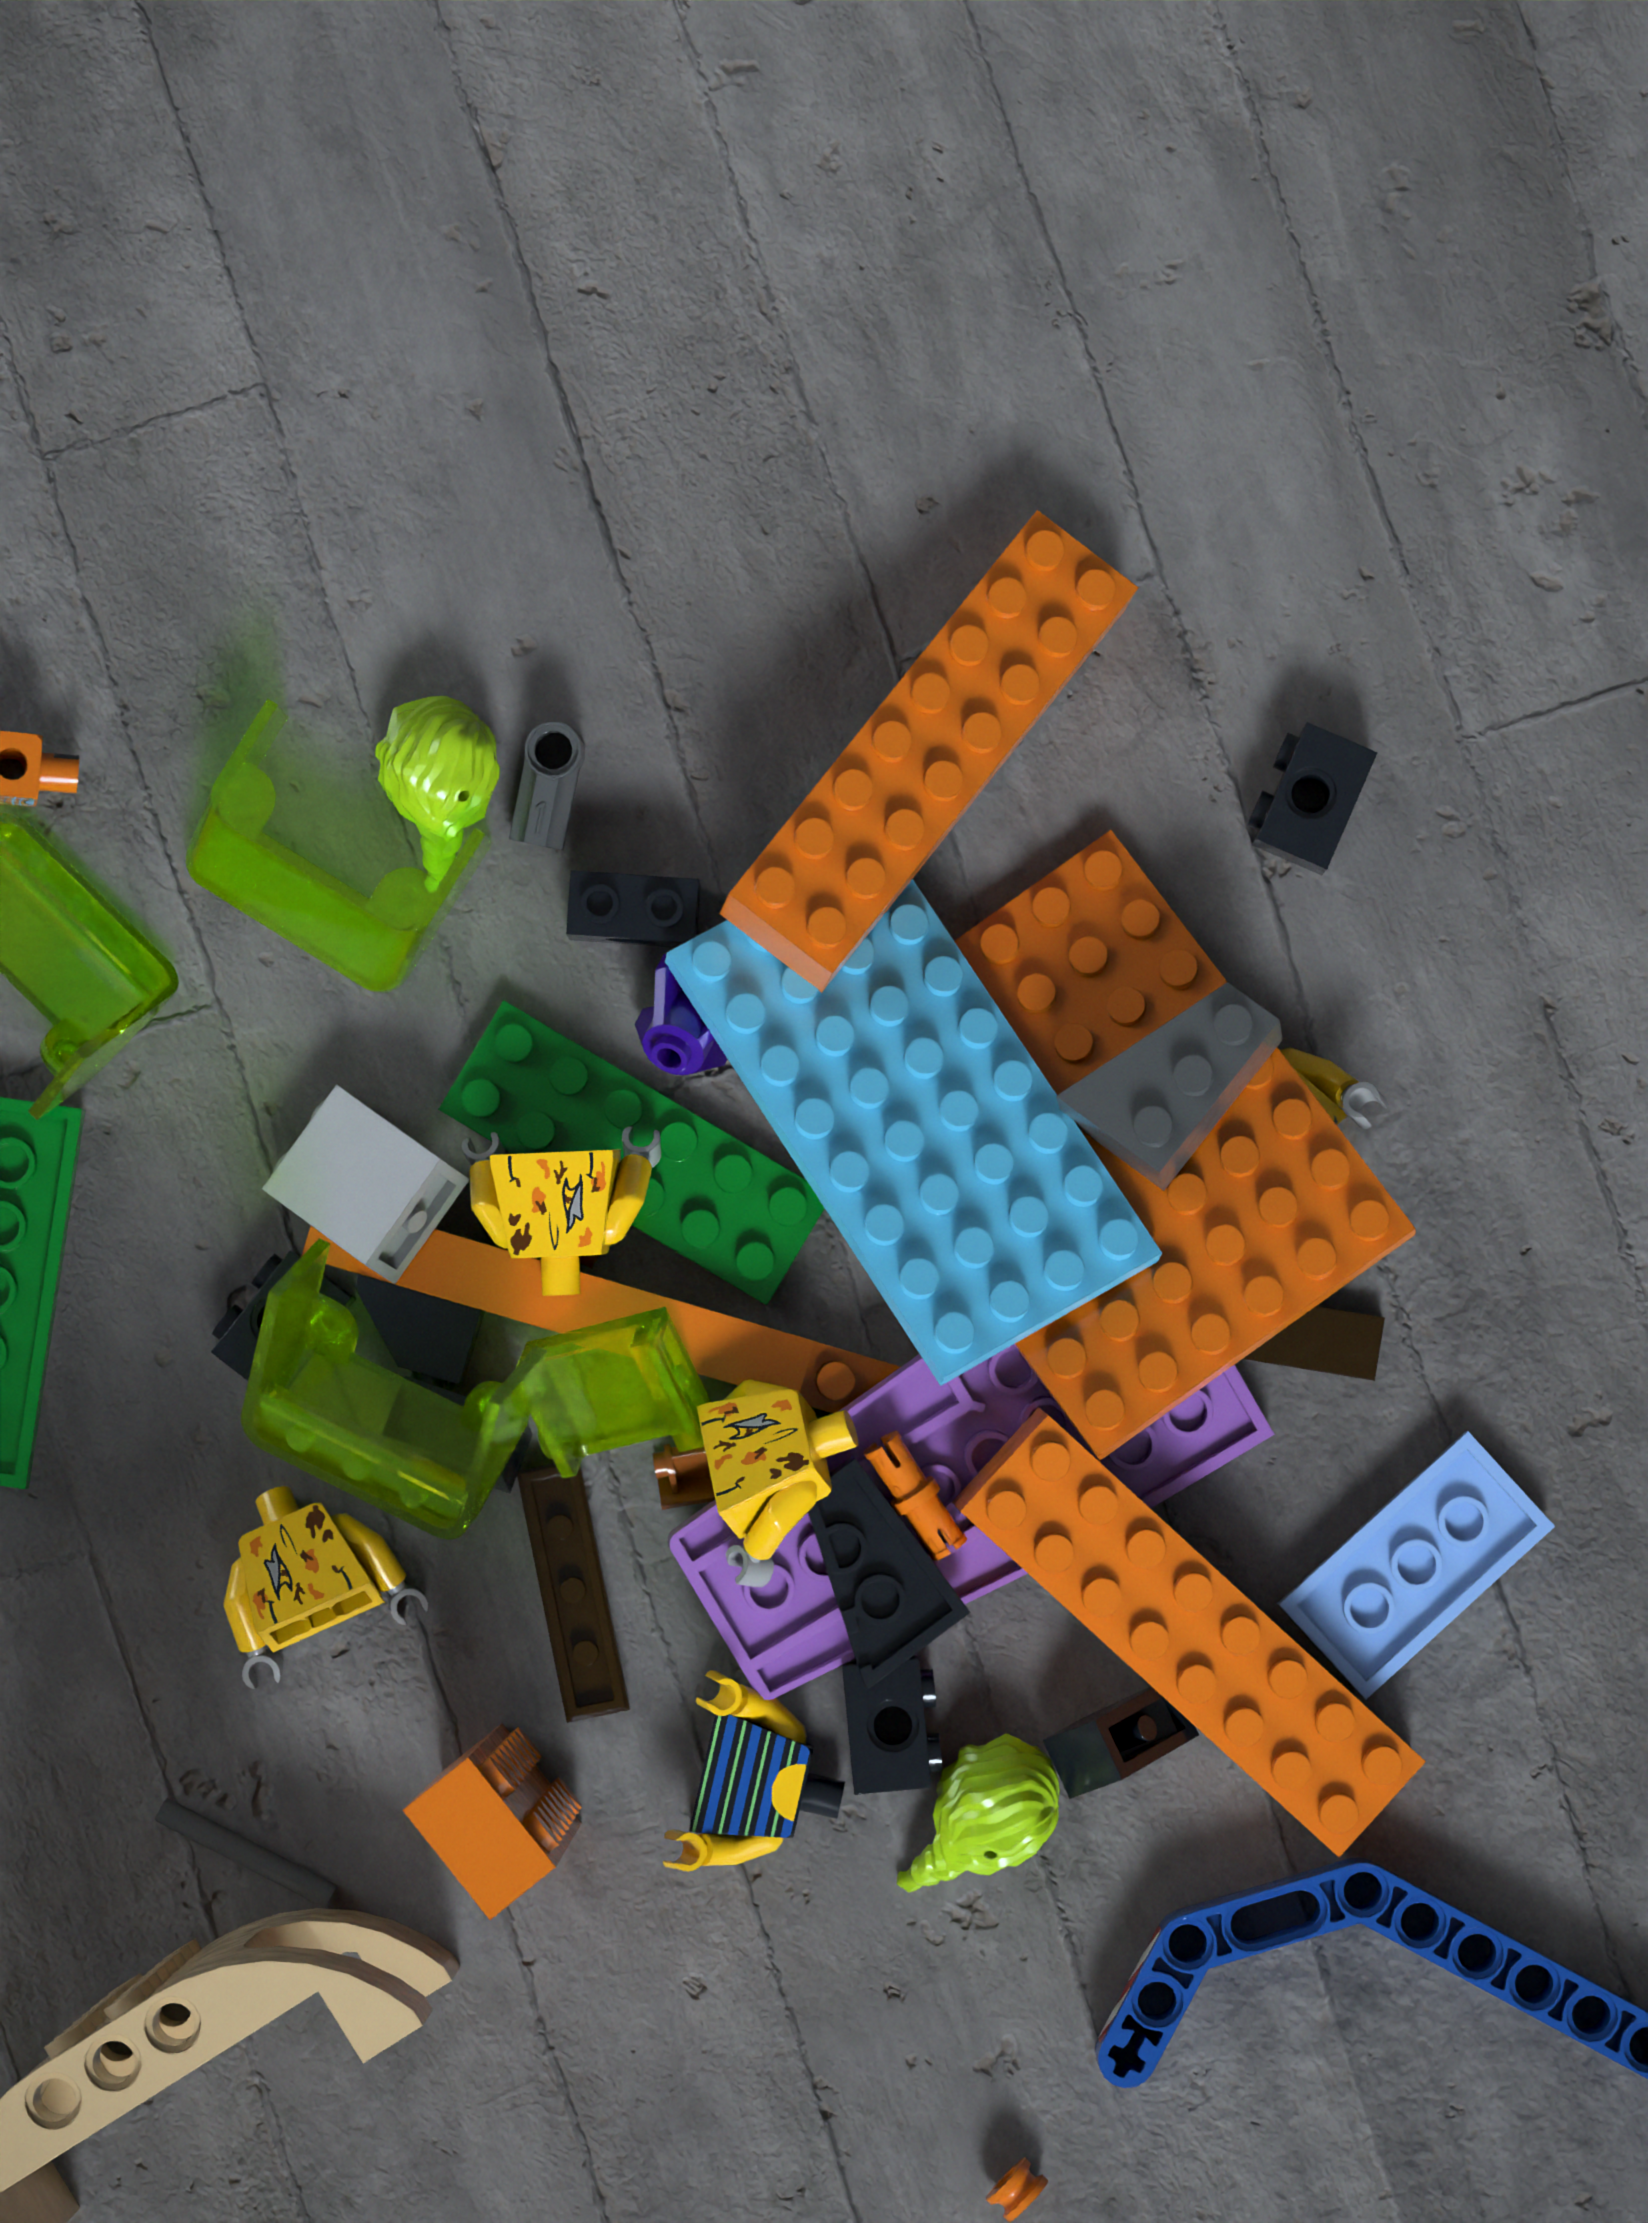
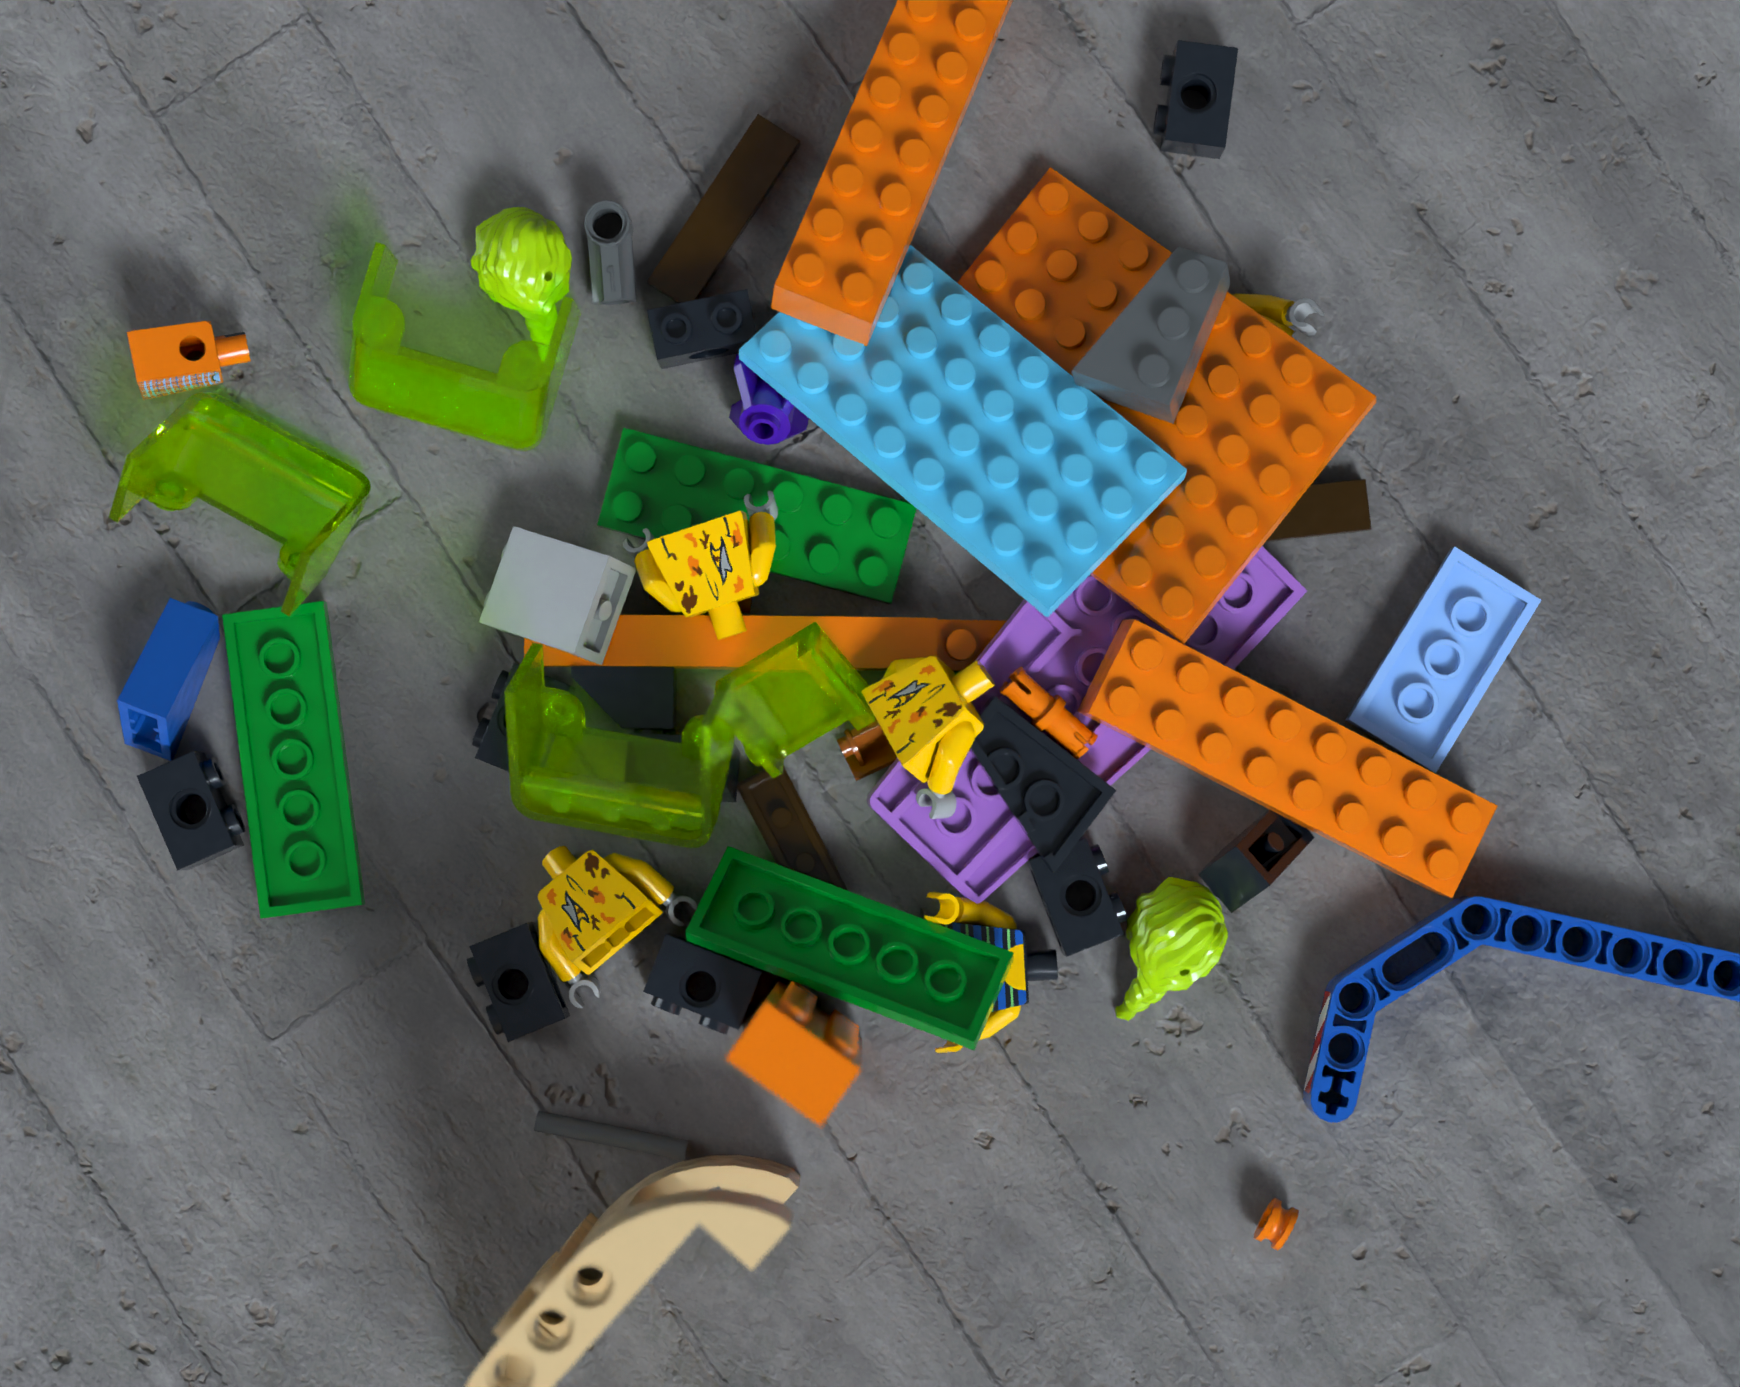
camera: 20 degrees left, 0 degrees up
(211, 1667) = (542, 1001): none -> black brick
(446, 1708) = (733, 979): none -> black brick
(596, 1709) = (850, 947): none -> green plate
(699, 771) = (724, 211): none -> dark brown tile

